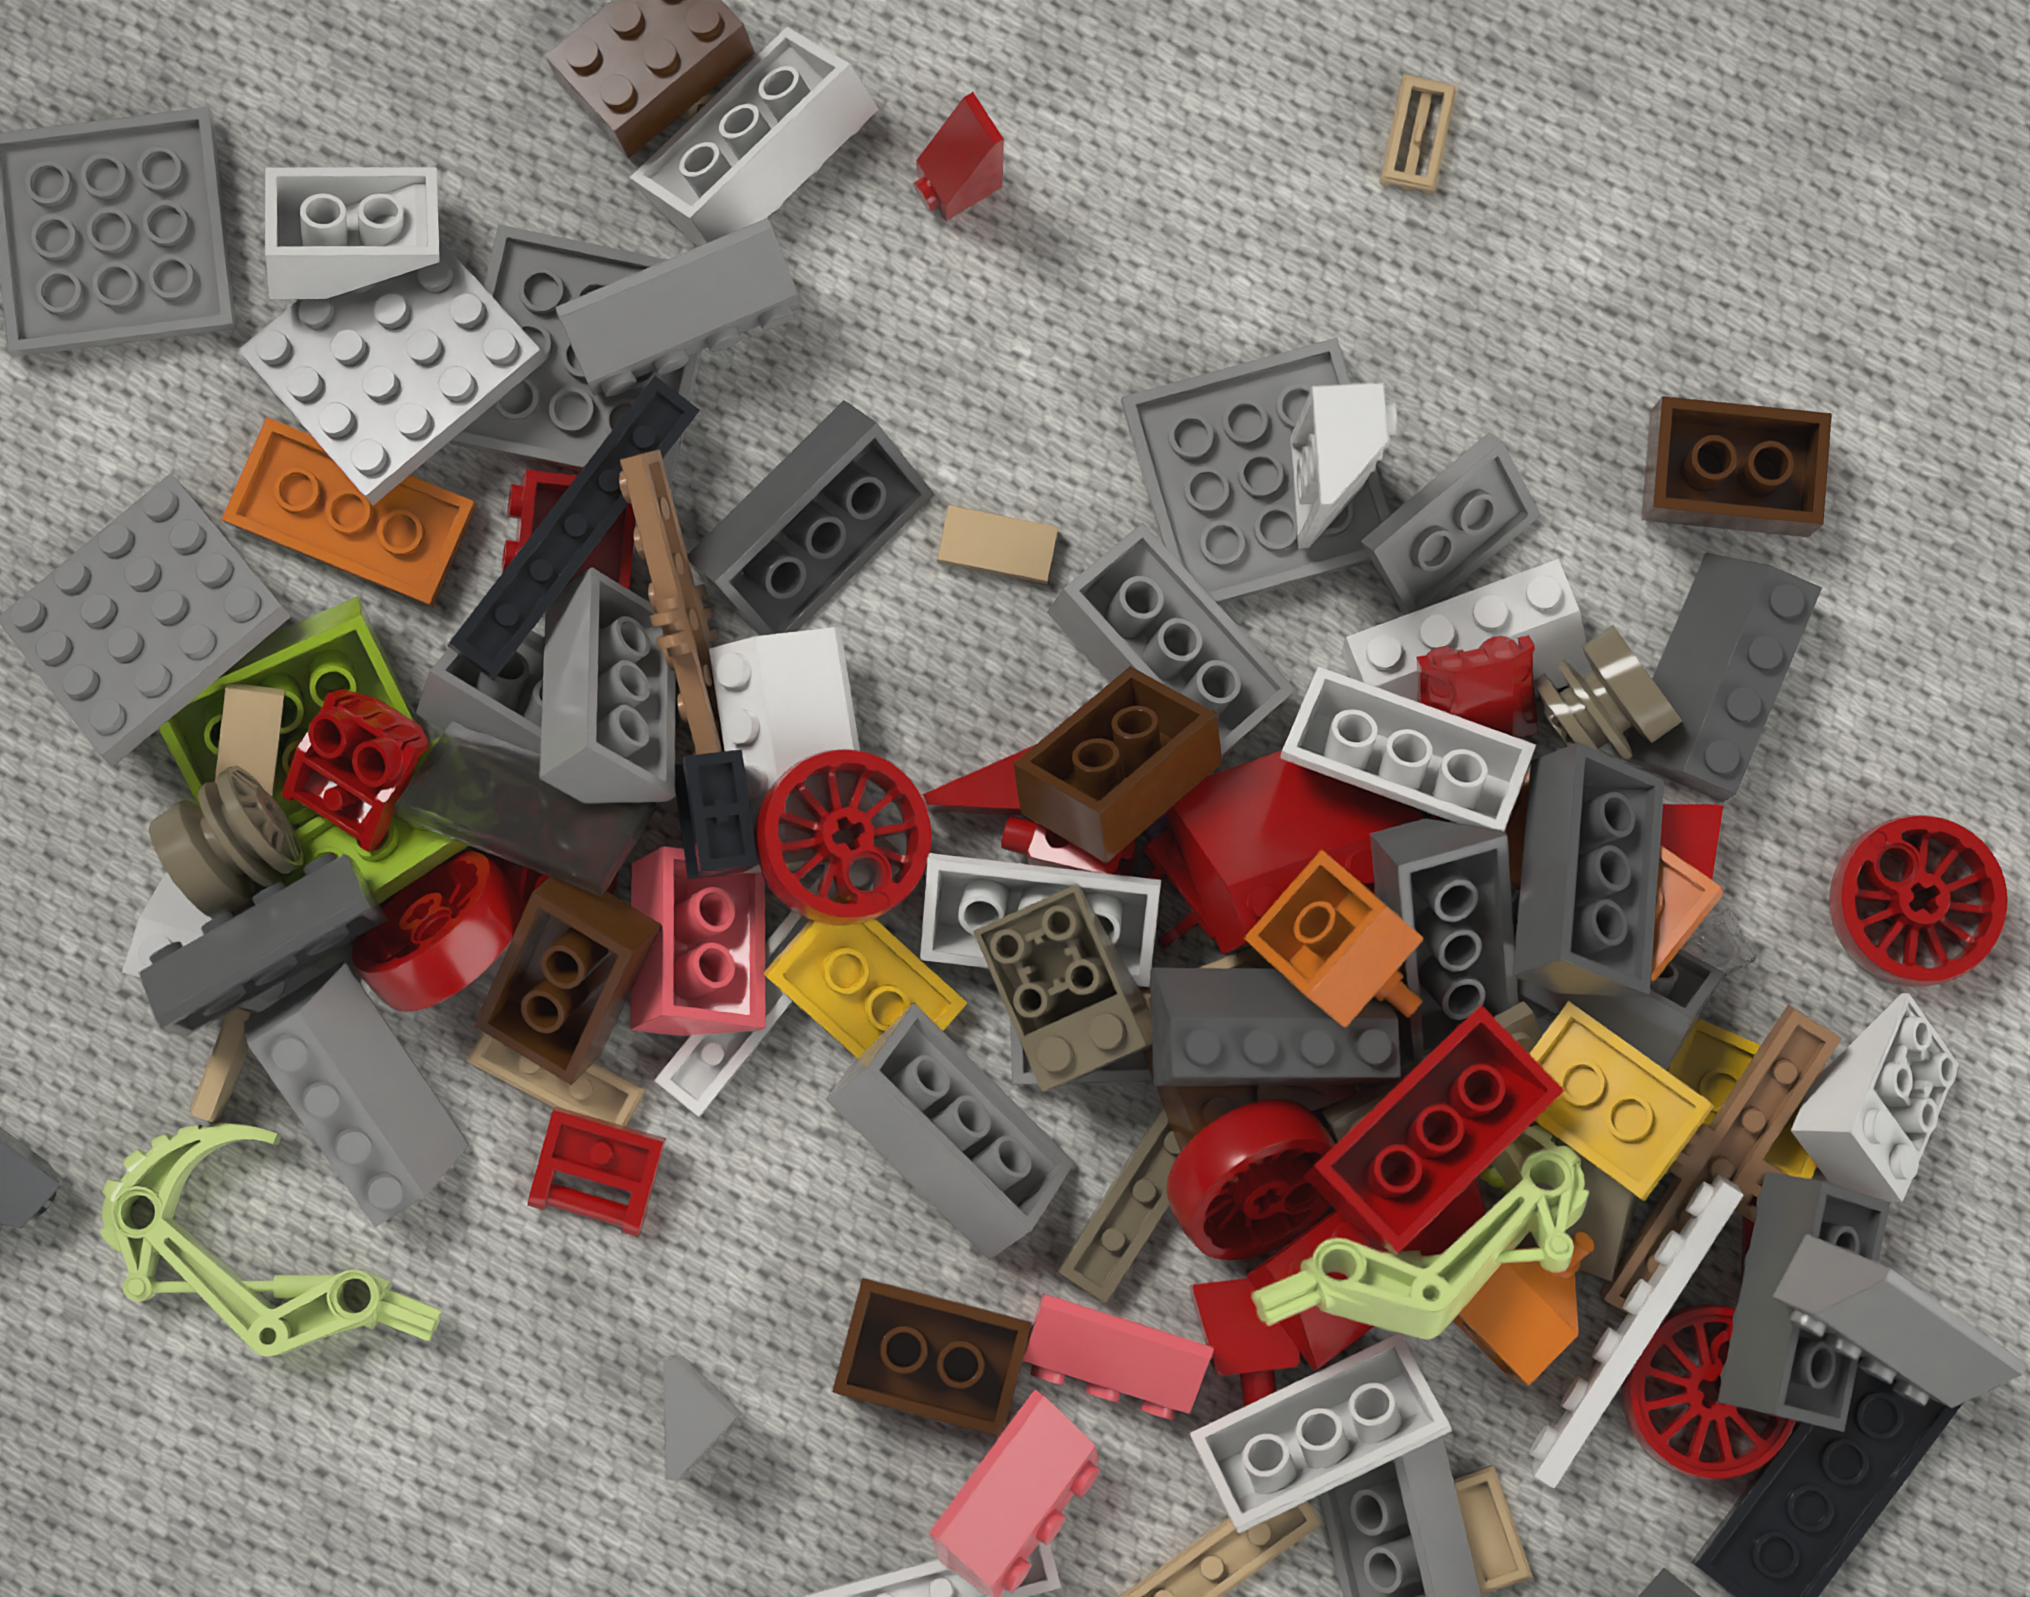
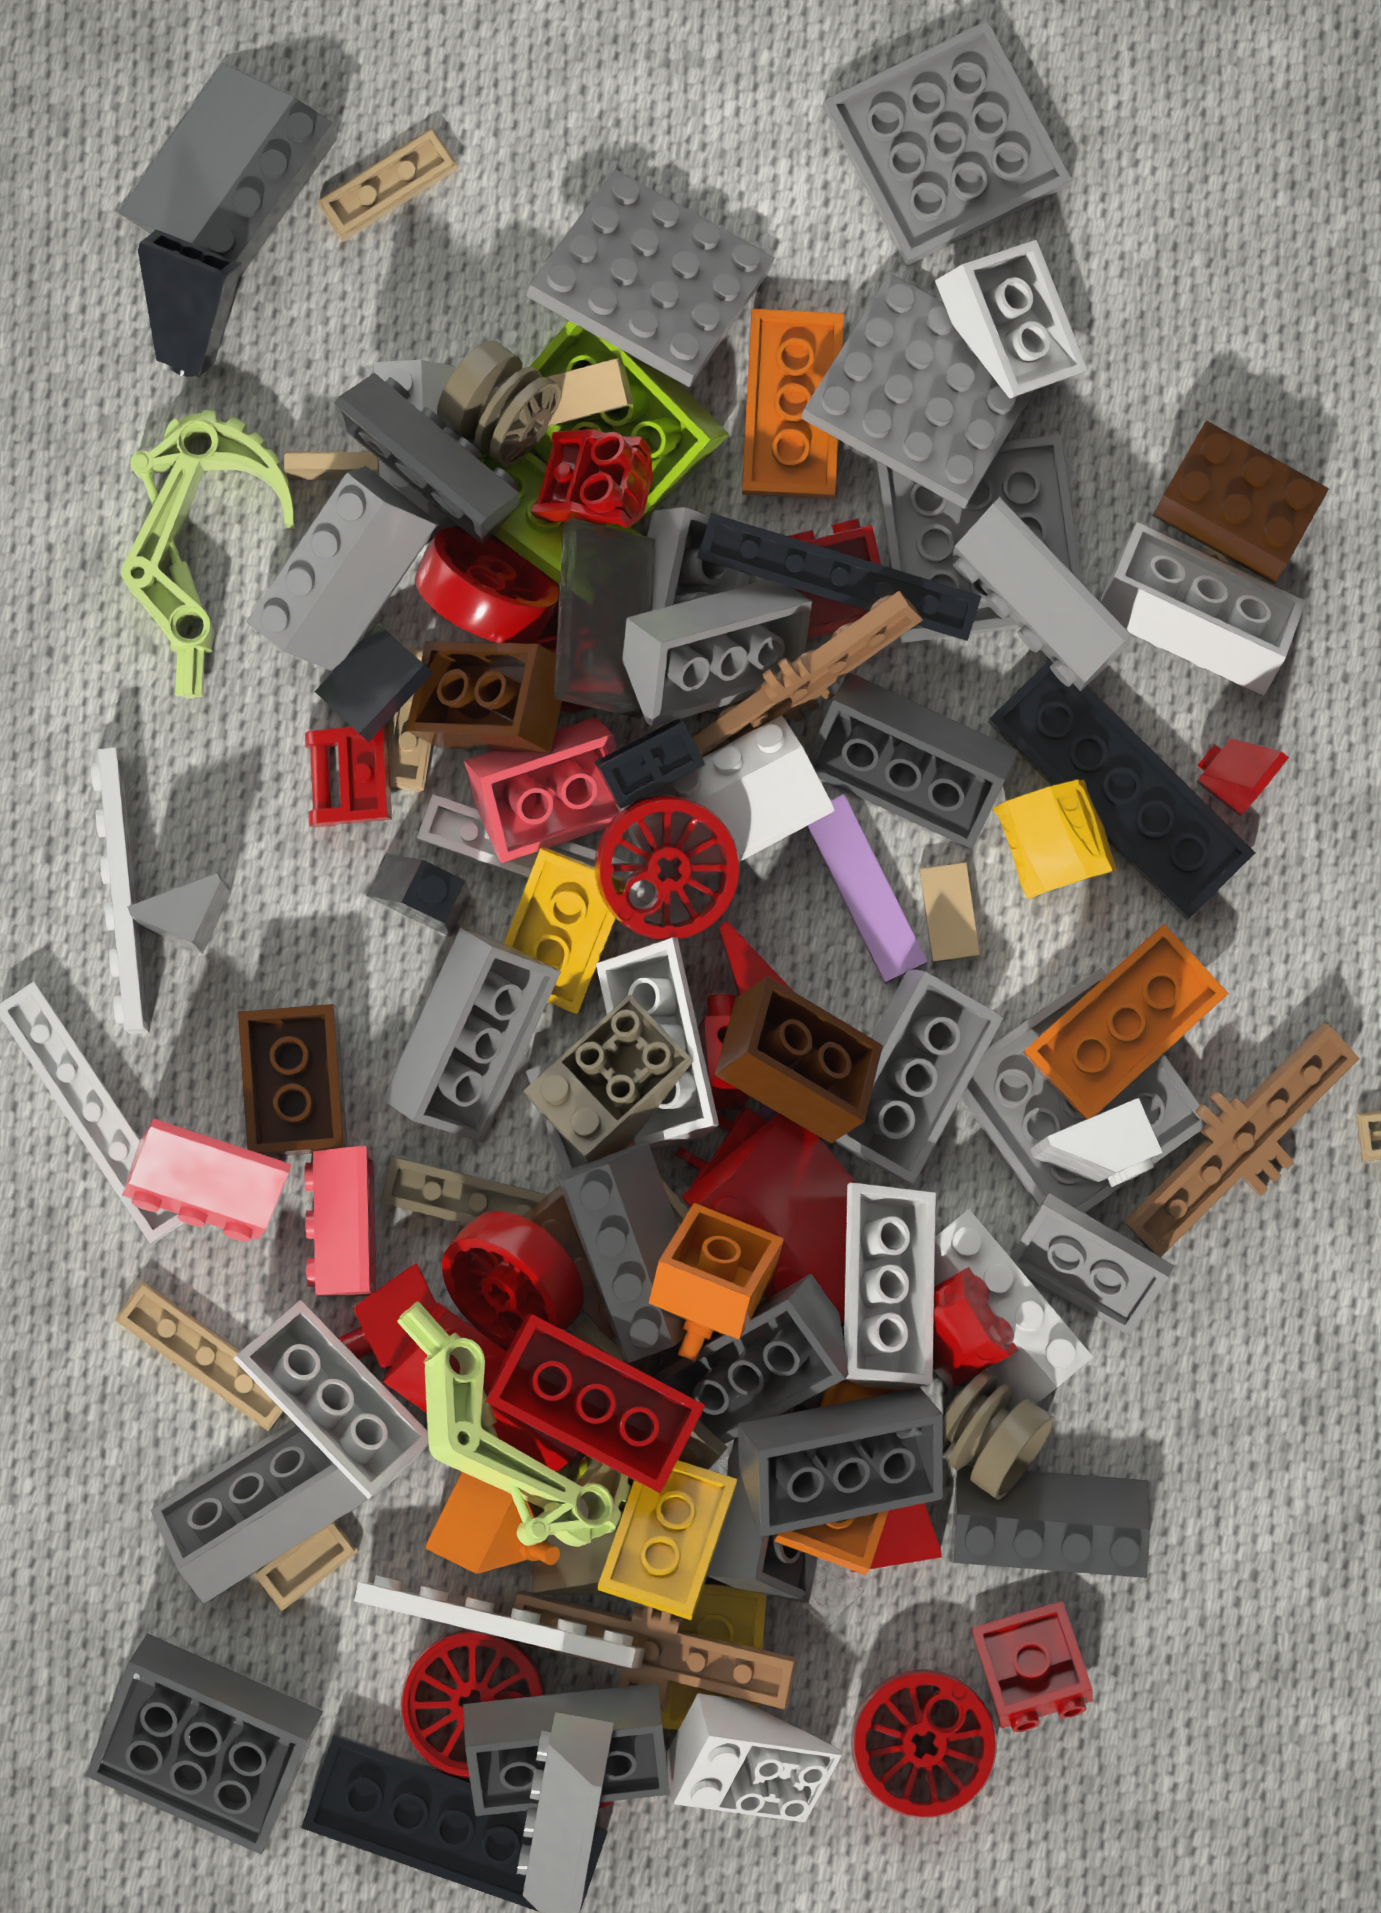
camera: 75 degrees right, 0 degrees up
(499, 1103) = (373, 682): none -> black tile
(611, 1478) = (118, 872): none -> white plate
(762, 1135) = (421, 892): none -> black slope
(927, 303) = (1137, 796): none -> black plate
(943, 628) = (866, 892): none -> lavender tile
(959, 394) = (1055, 837): none -> yellow slope
(1196, 390) = (1125, 1022): none -> orange plate
(1368, 311) = (1242, 1140): none -> medium nougat hinge
(1736, 466) = (1223, 1478): reddish brown brick -> none
(1873, 750) = (1033, 1666): none -> red plate

